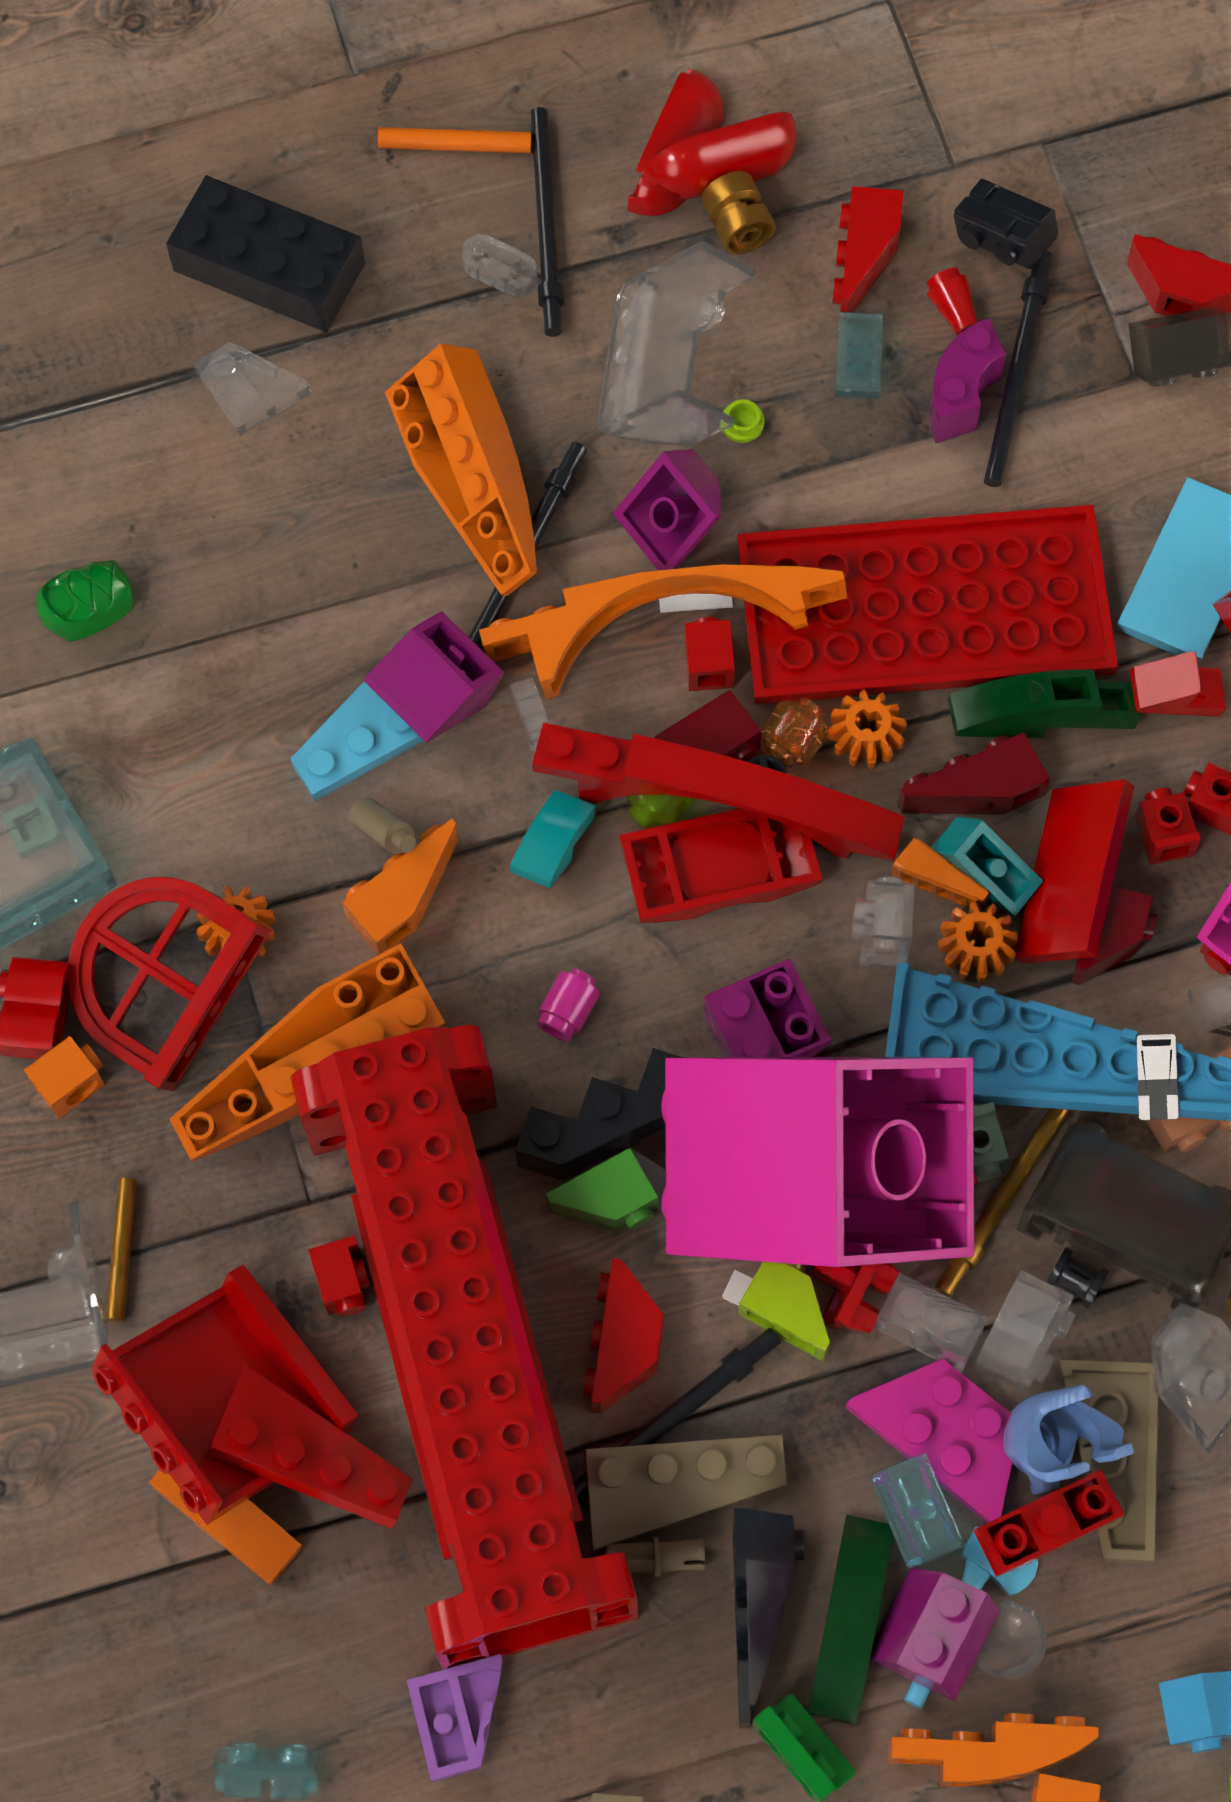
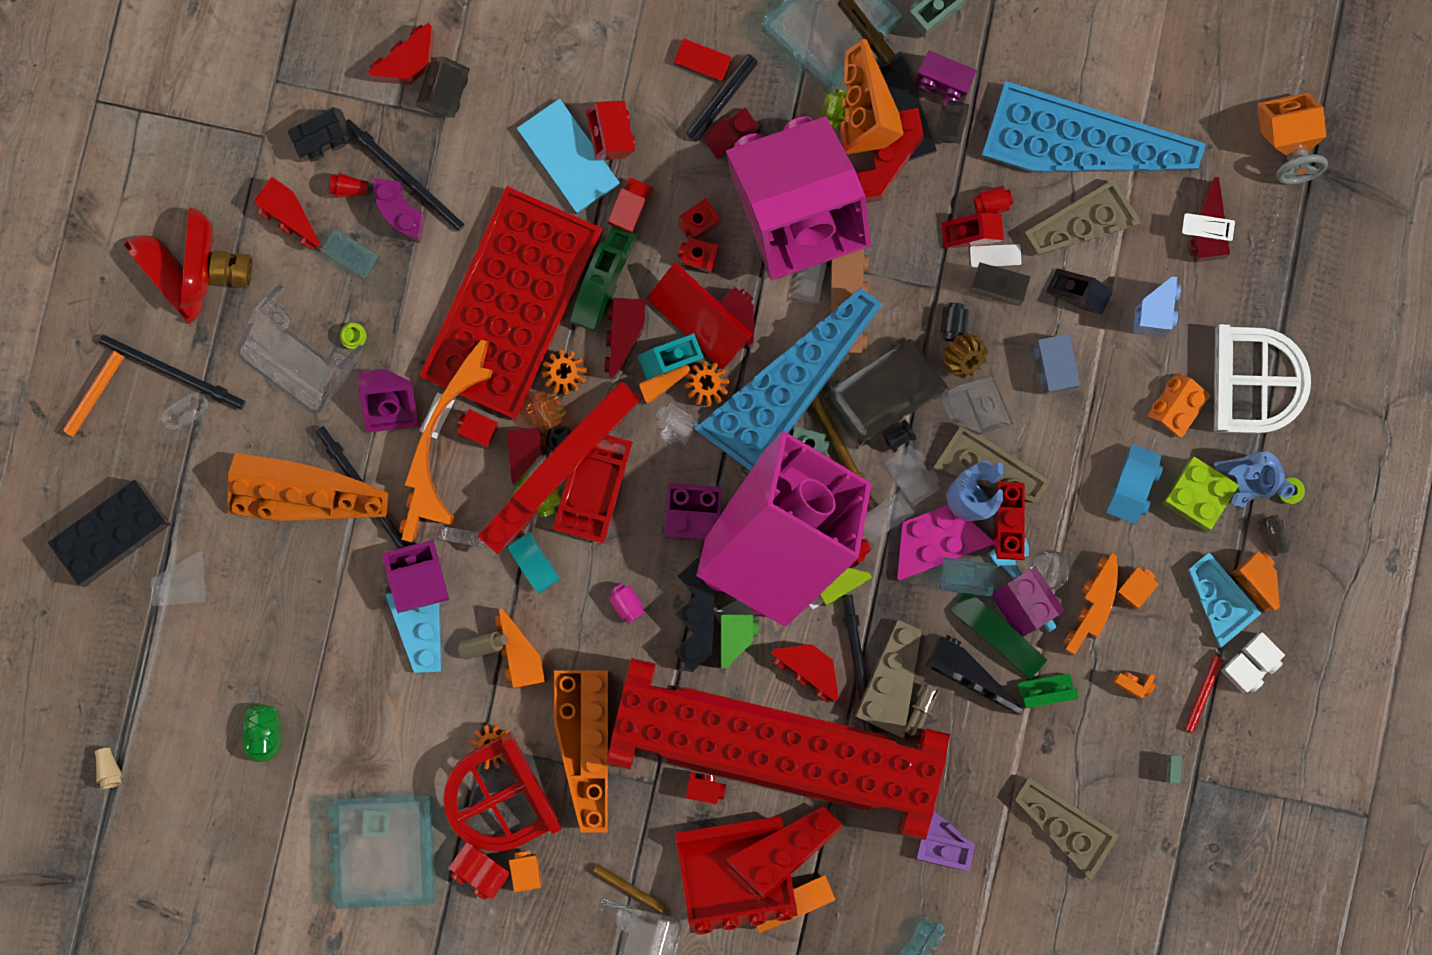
camera: 65 degrees left, 15 degrees up
(1157, 1077) = (830, 342): sticker -> none

